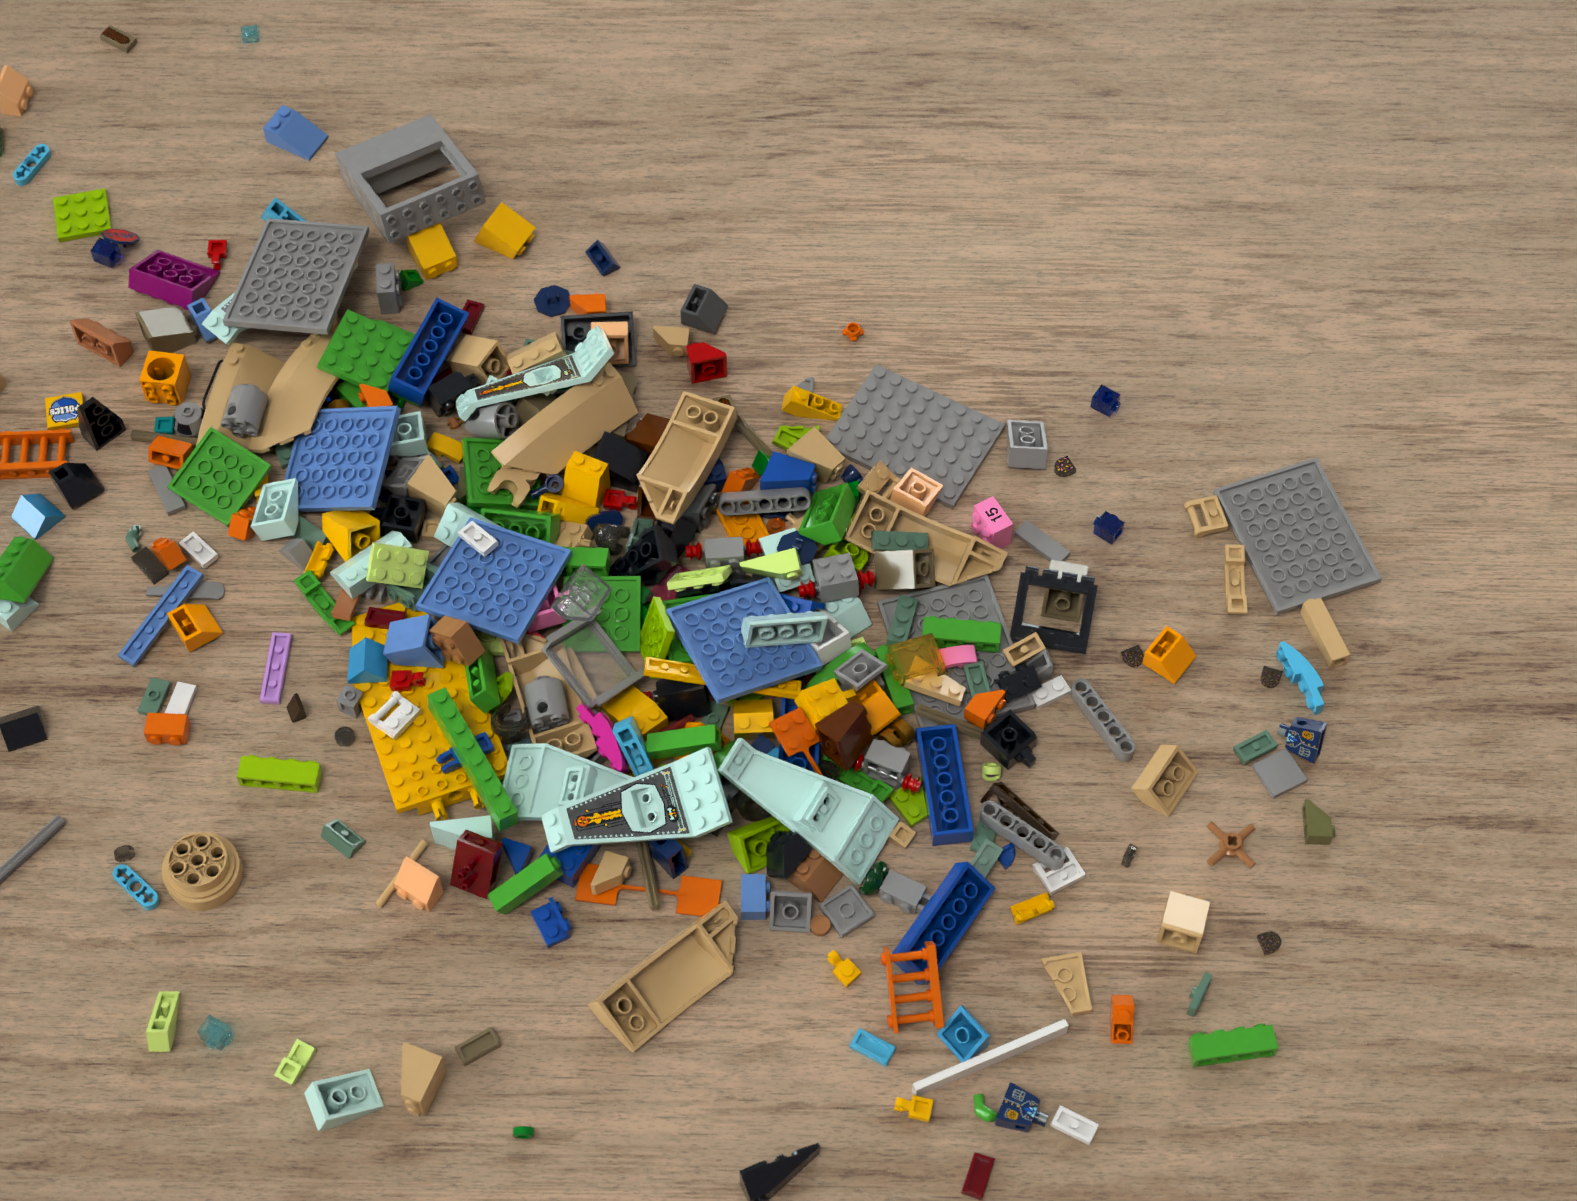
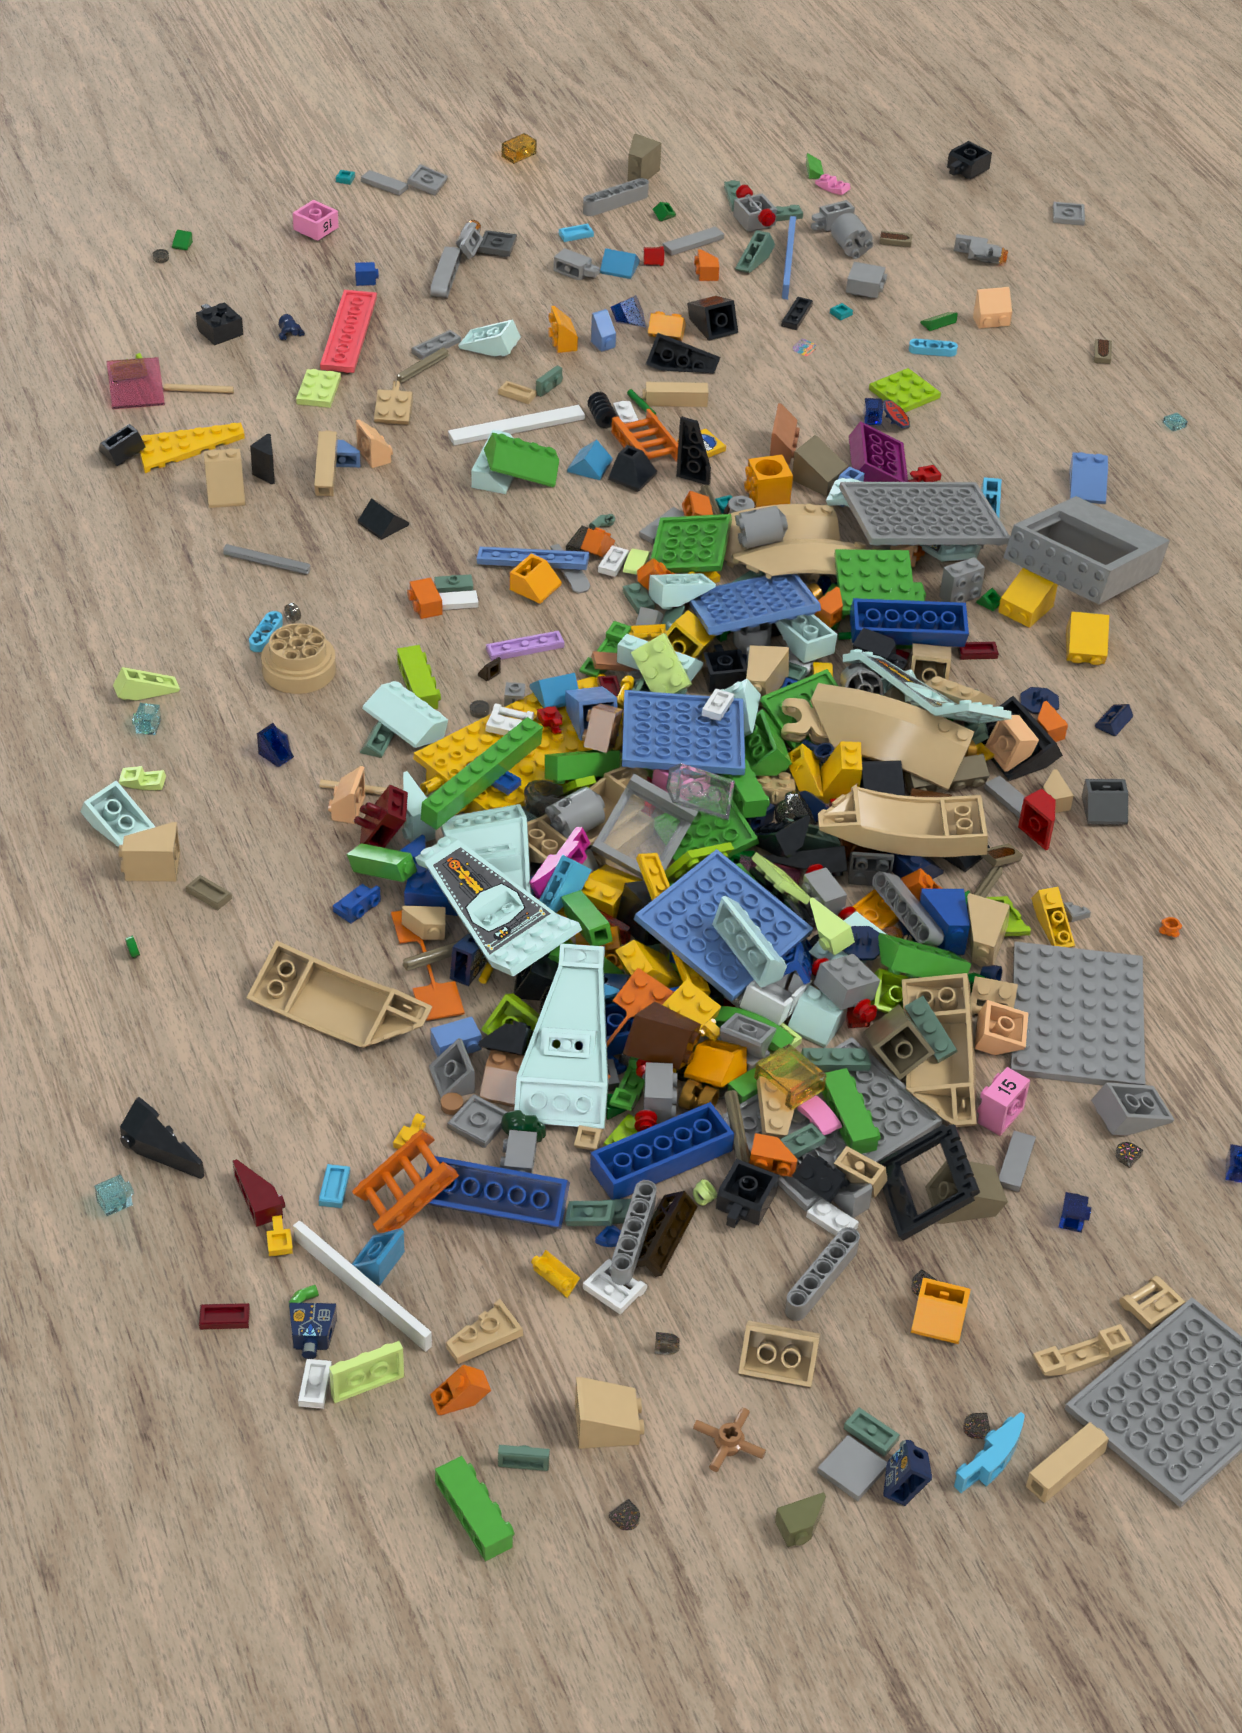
camera: 65 degrees right, 15 degrees down
(209, 531) = (635, 560): none -> yellowish green slope
(259, 549) = (638, 597): none -> sand green plate
(314, 929) = (274, 745): none -> clear blue slope
(331, 800) = (406, 714): none -> light aqua slope
(390, 602) = (627, 683): none -> yellow bar
(661, 373) = (1005, 794): none -> light grey tile
(867, 1109) = (258, 1194): none -> dark red slope
(1085, 1082) = (366, 1371): none -> yellowish green plate

